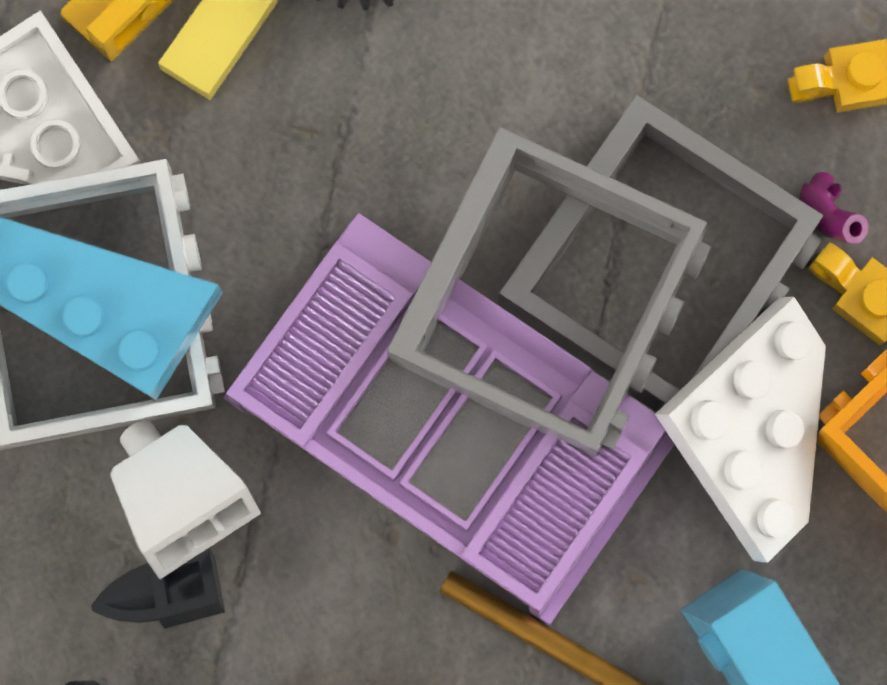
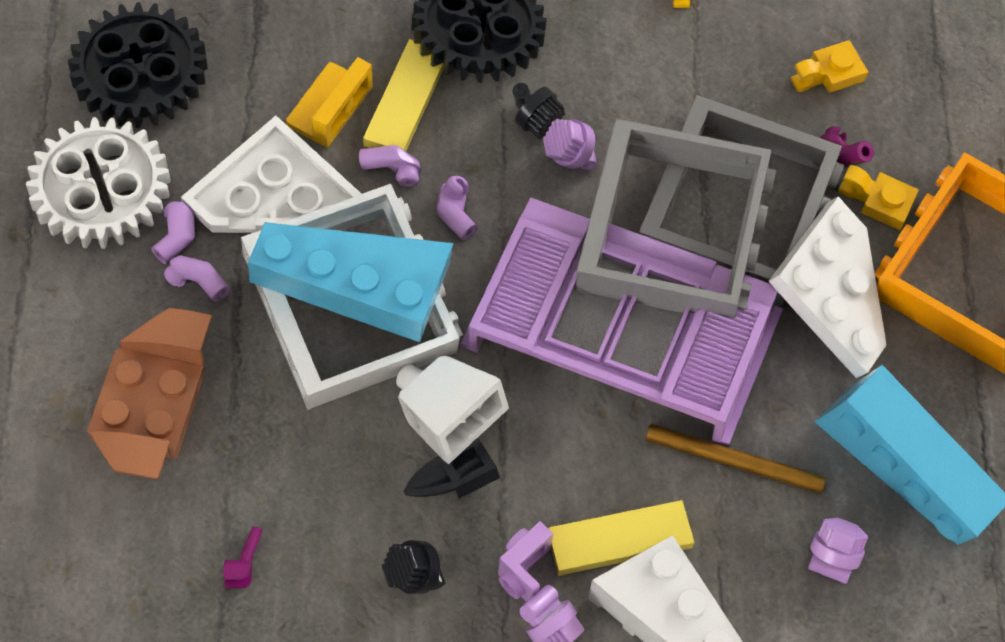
camera: 15 degrees left, 15 degrees down
(195, 103) = (395, 158): none -> lavender arm
(257, 190) = (451, 206): none -> lavender arm
(413, 69) = (536, 110): none -> black piece
(443, 130) = (571, 144): none -> lavender piece

